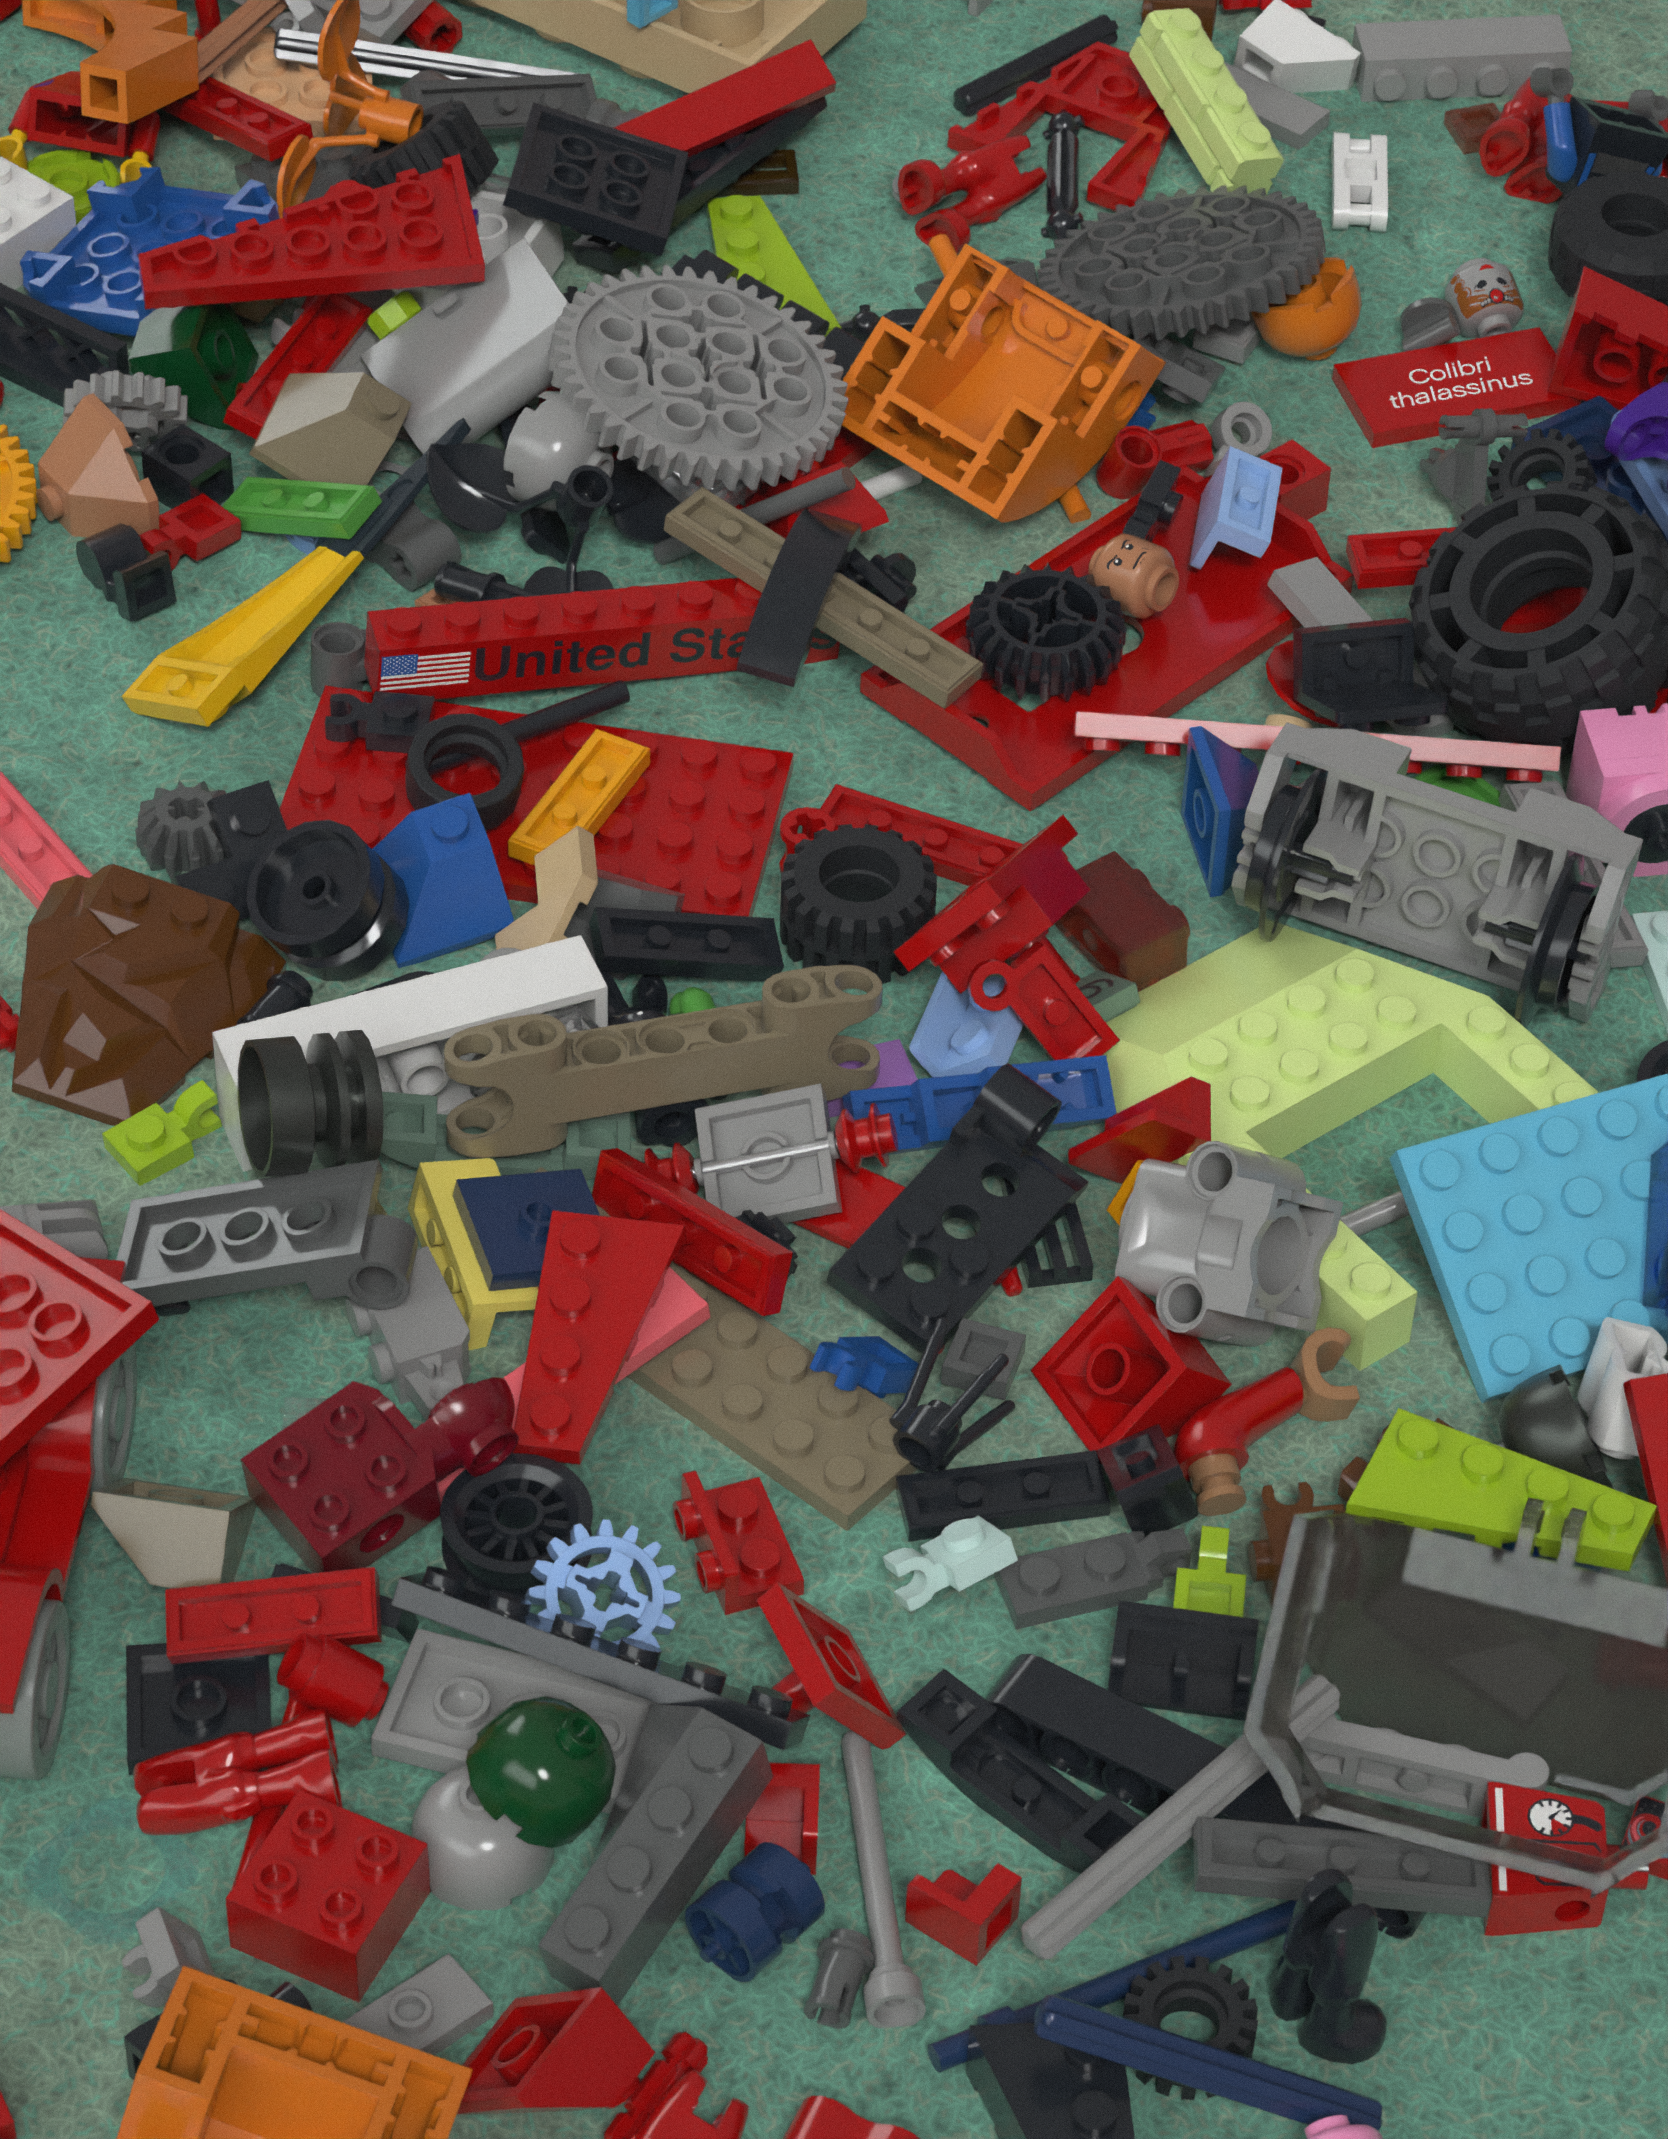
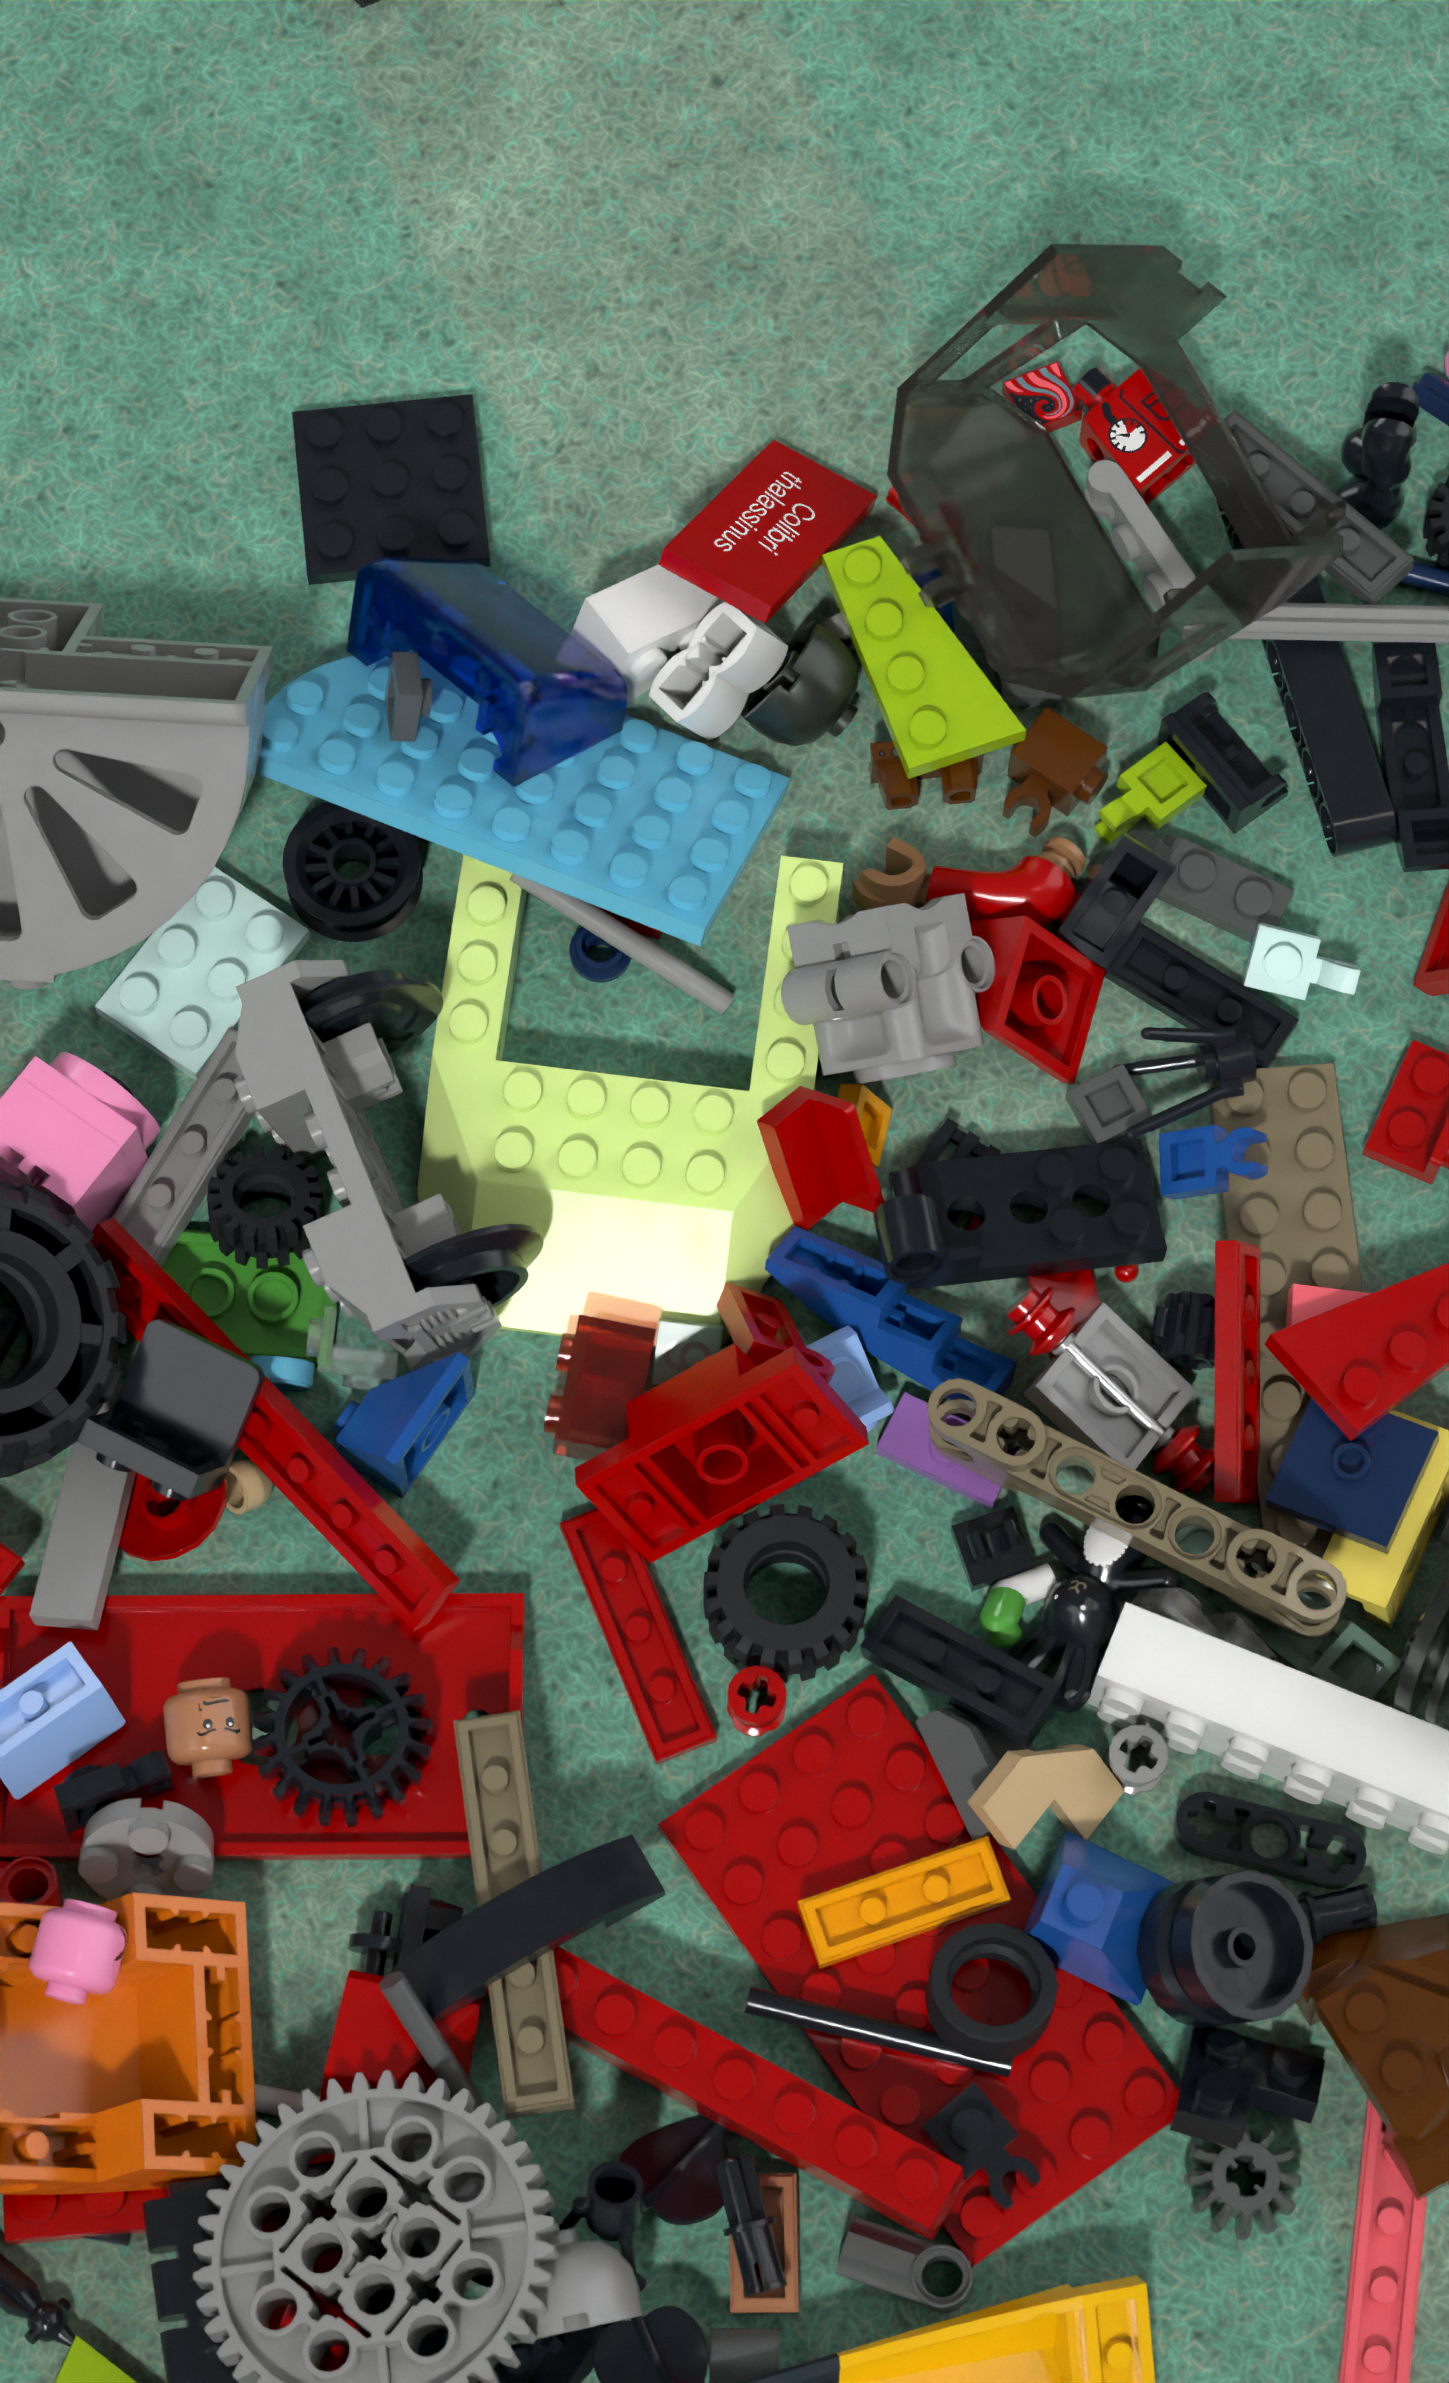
camera: 135 degrees left, 25 degrees up
(1055, 381) = (78, 1951): none -> bright pink head
(1097, 498) = (124, 1828): none -> light grey plate

